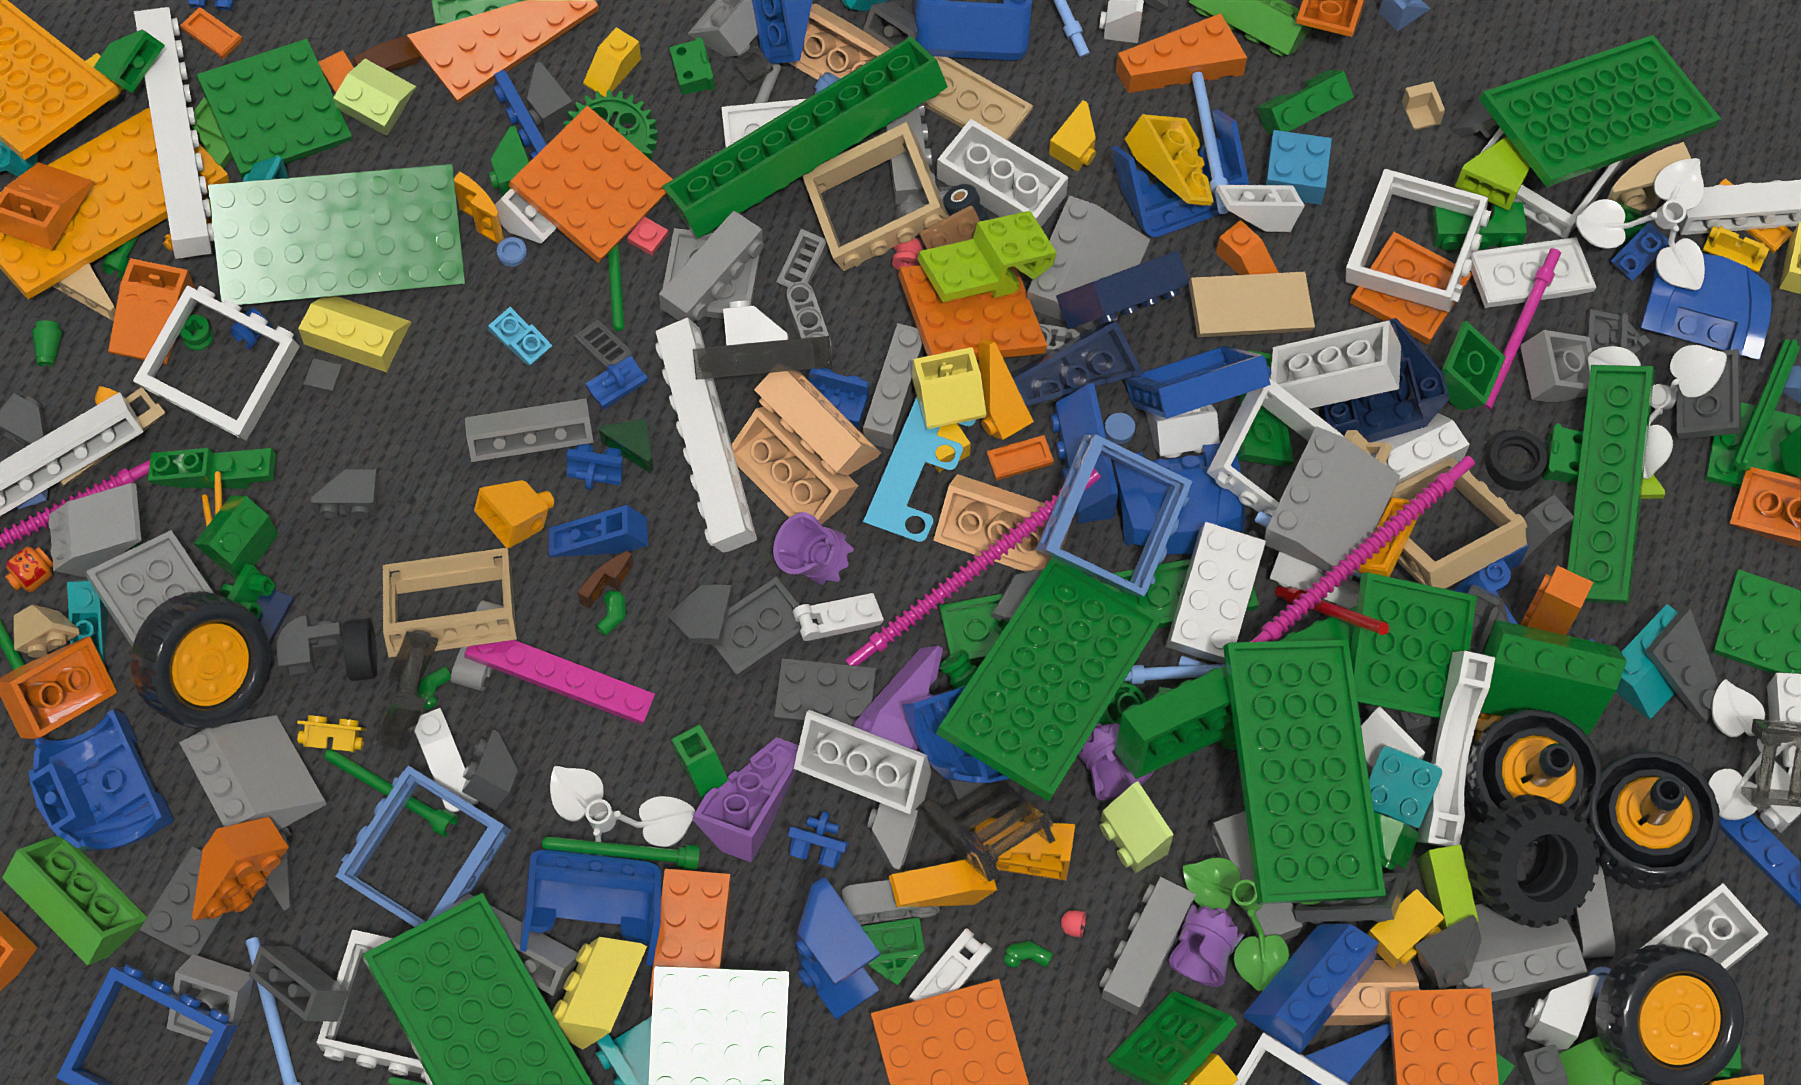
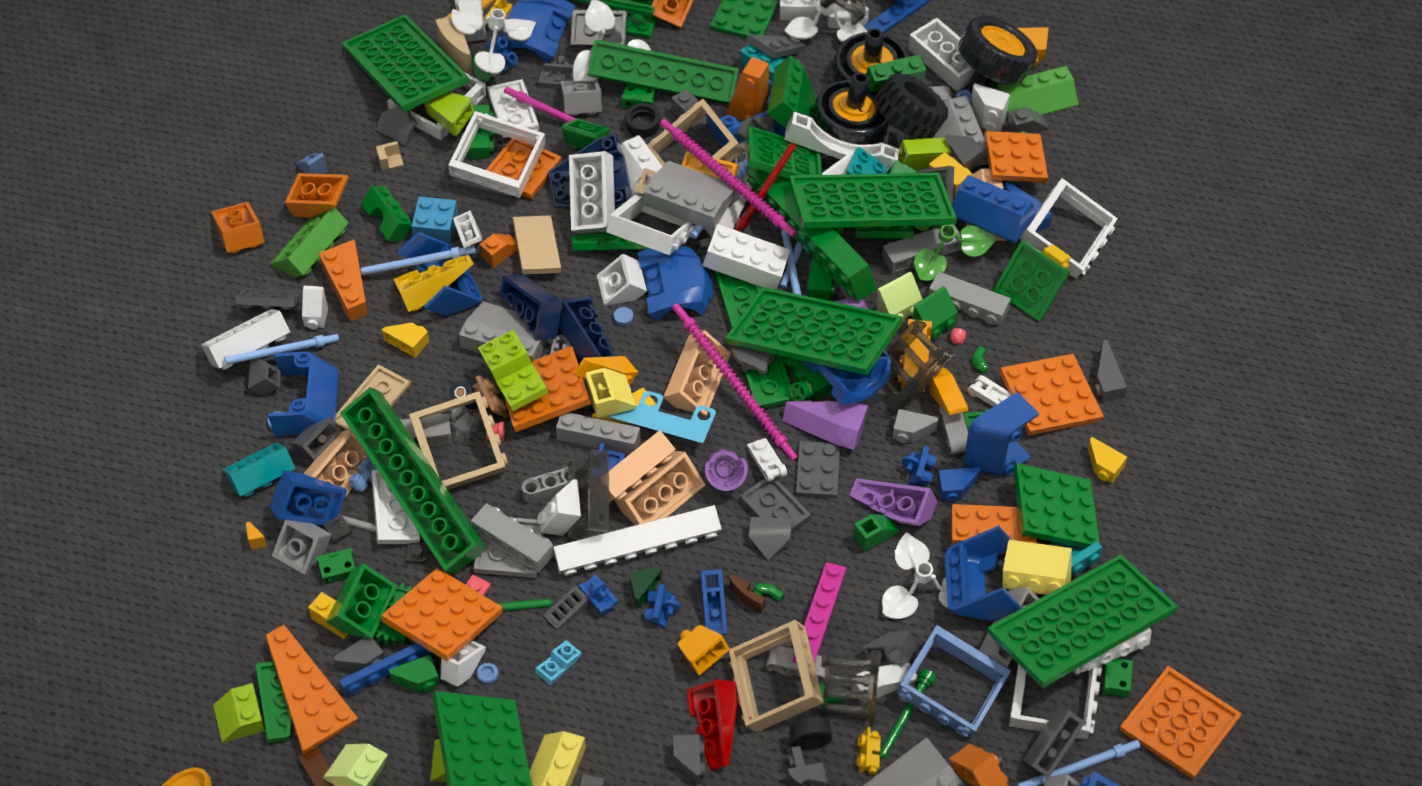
camera: 90 degrees left, 10 degrees down
(422, 533) = (715, 710): none -> red wedge
(477, 203) = (463, 680): light orange slope -> none
(528, 430) = (636, 645): light grey brick -> none
(613, 85) = (361, 602): none -> green slope
(685, 857) = (937, 538): green piece -> none
(781, 891) = (957, 482): none -> blue slope
(804, 237) = (495, 484): light grey slope -> none
(862, 763) = (873, 435): white slope -> none
(1001, 173) = (438, 371): white brick -> none
(1020, 457) = (646, 369): orange tile -> none
(1070, 496) = (696, 312): medium blue window -> none
(1073, 418) = (646, 326): blue slope -> none
(1105, 882) = (939, 309): none -> green slope
(1198, 381) = (623, 272): blue window -> none
(1206, 944) = (969, 266): medium lavender hat -> none
(1614, 844) = (881, 72): none -> green arch

